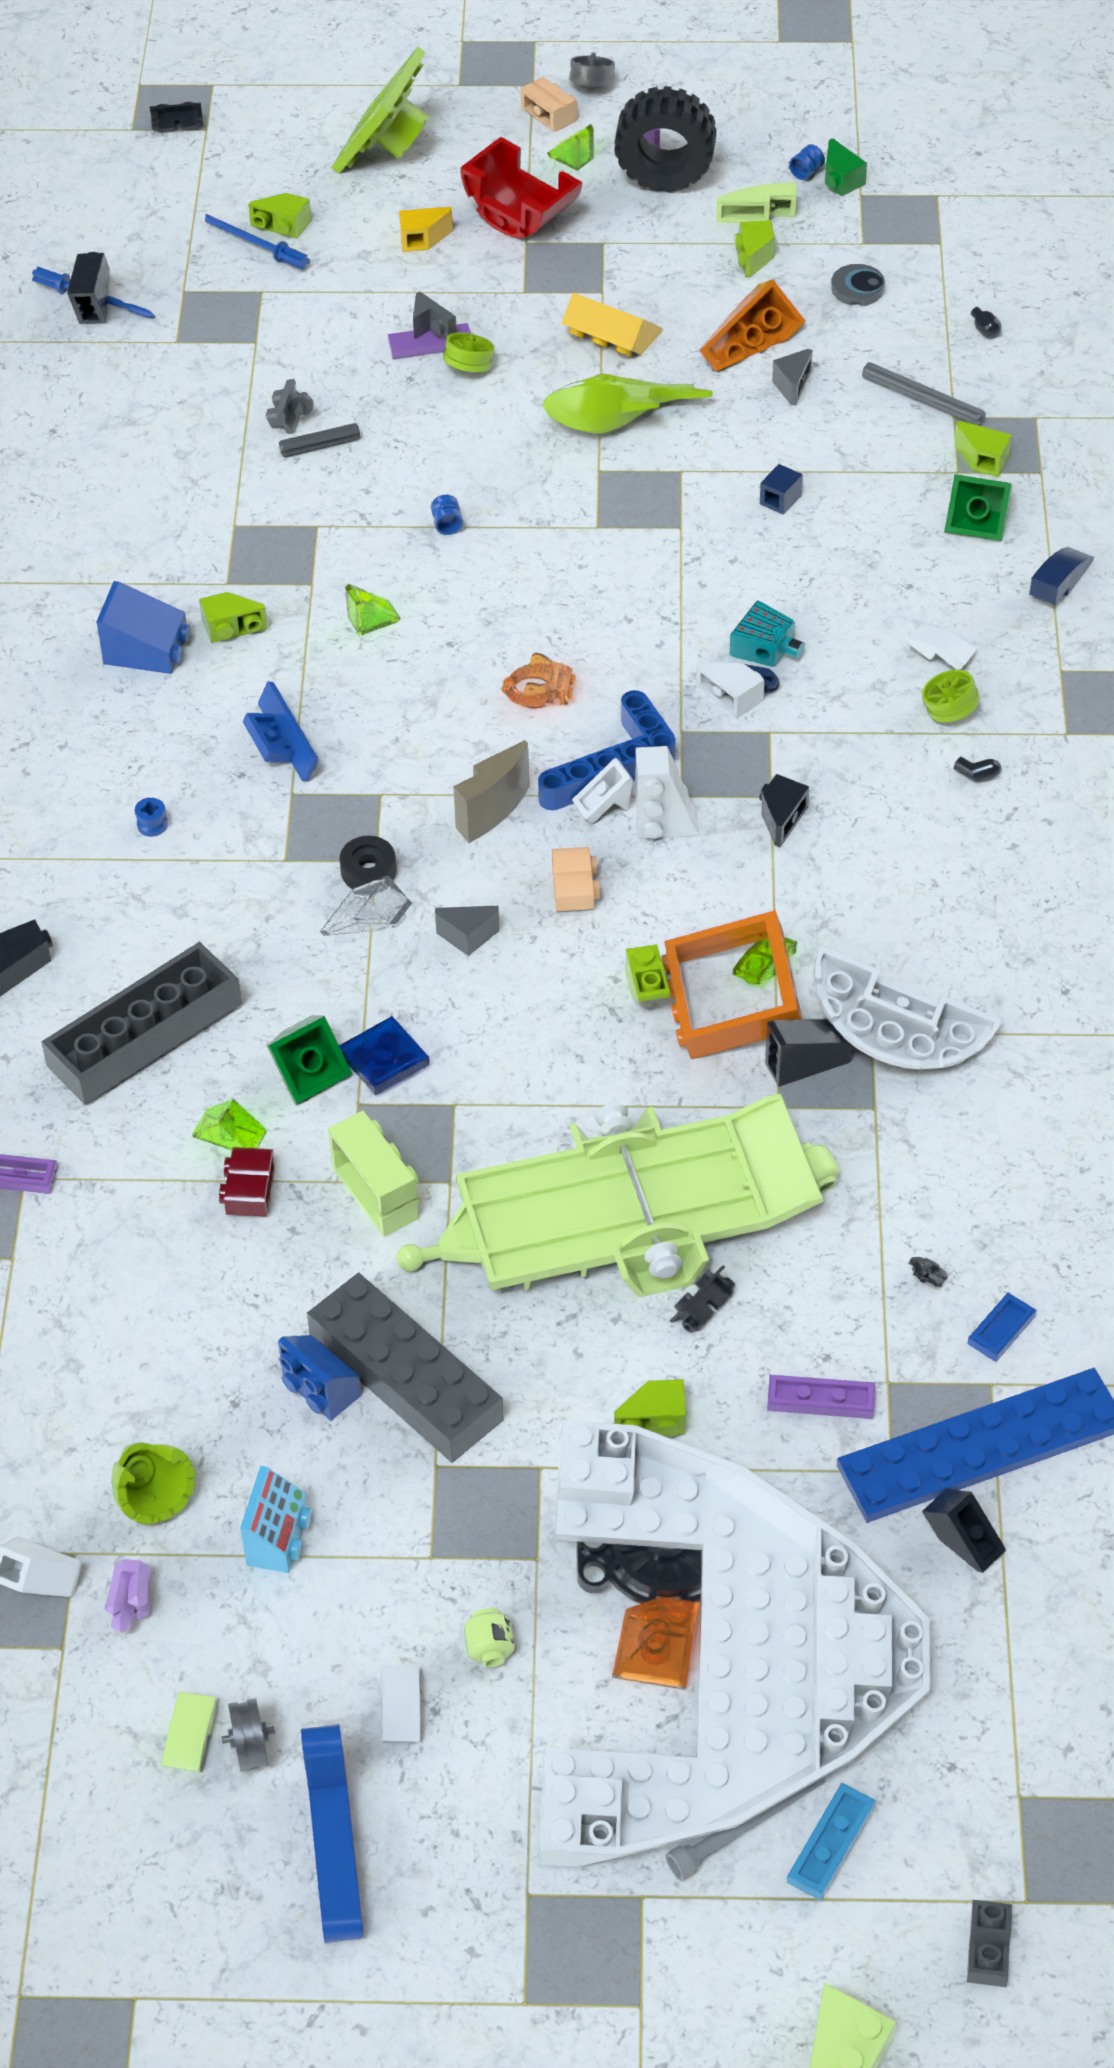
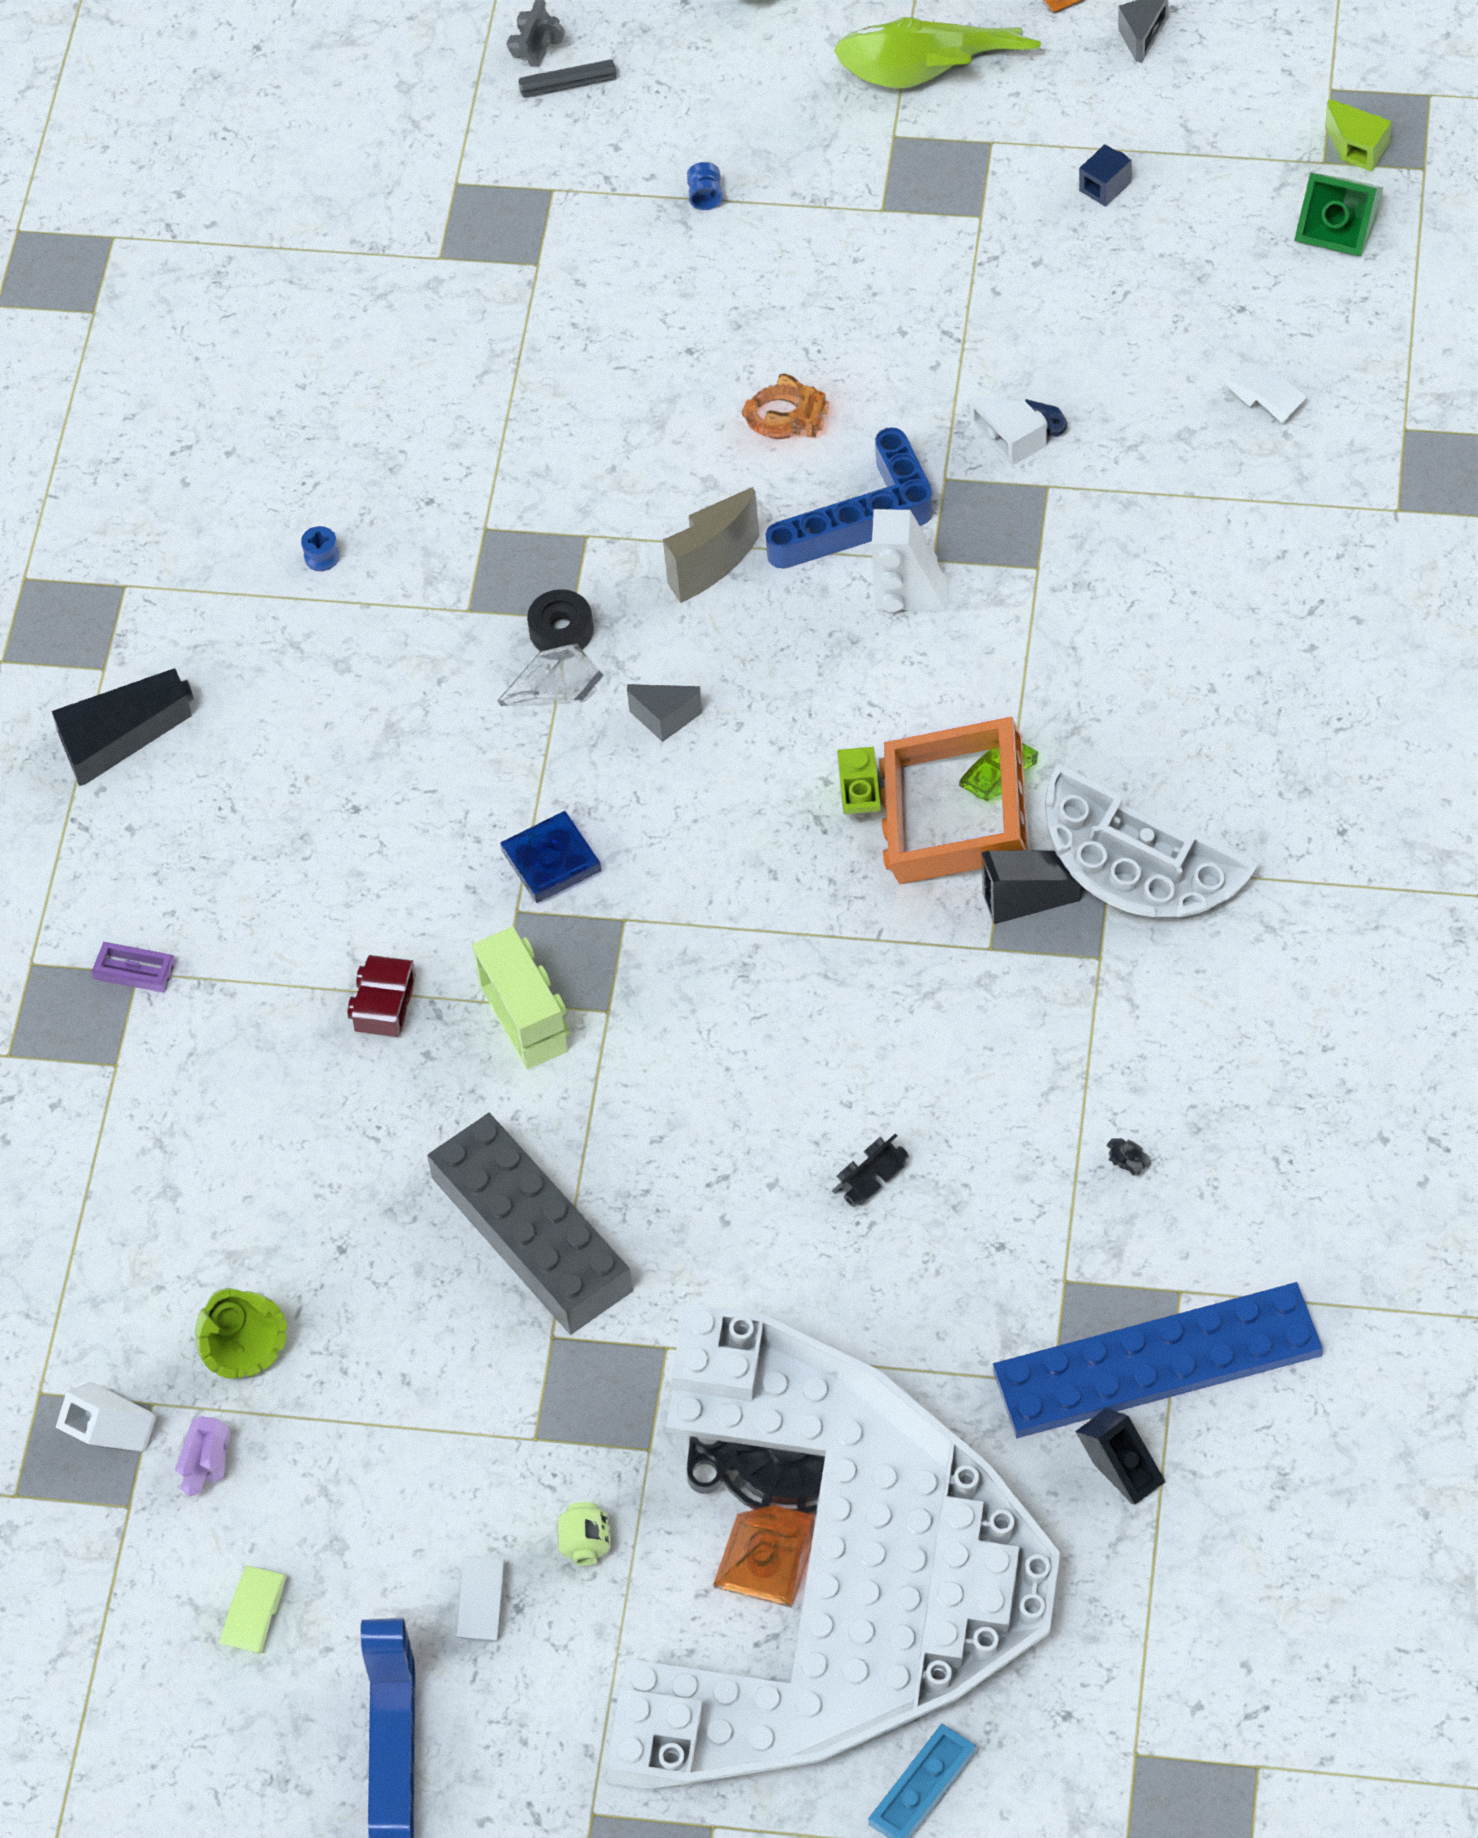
camera: 10 degrees right, 5 degrees up
(140, 631) = (331, 316): slope -> none
(141, 1022) = (283, 799): dark grey brick -> none
(229, 1127) = (369, 930): clear neon green slope -> none
(231, 616) = (438, 302): lime slope -> none
(248, 1734) = (312, 1618): flat silver wheel -> none
(274, 1522) = (366, 1388): medium azure slope -> none
(279, 734) = (476, 456): blue bracket -> none
(308, 1057) = (464, 854): green slope -> none
(317, 1375) = (432, 1225): blue slope -> none
(368, 611) = (599, 304): clear neon green slope -> none
(573, 879) = (792, 657): light nougat brick -> none
(608, 787) = (843, 549): white slope -> none
(625, 1193) = (803, 1048): yellowish green piece -> none
(656, 1407) = (797, 1293): lime slope -> none
(685, 1859) = (764, 1791): light grey piece -> none
(765, 636) = (1057, 366): teal torso -> none
(783, 806) = (1047, 583): black slope -> none
(821, 1396) = (987, 1291): medium lavender tile -> none
(822, 1165) = (1017, 1026): yellowish green head -> none
(924, 394) = (1297, 57): axle -> none
(953, 694) = (1268, 456): lime wheel -> none
(978, 771) = (1285, 551): black arm -> none
(1001, 1327) = (1201, 1226): blue tile -> none
(1059, 574) = (1421, 305): dark blue slope -> none

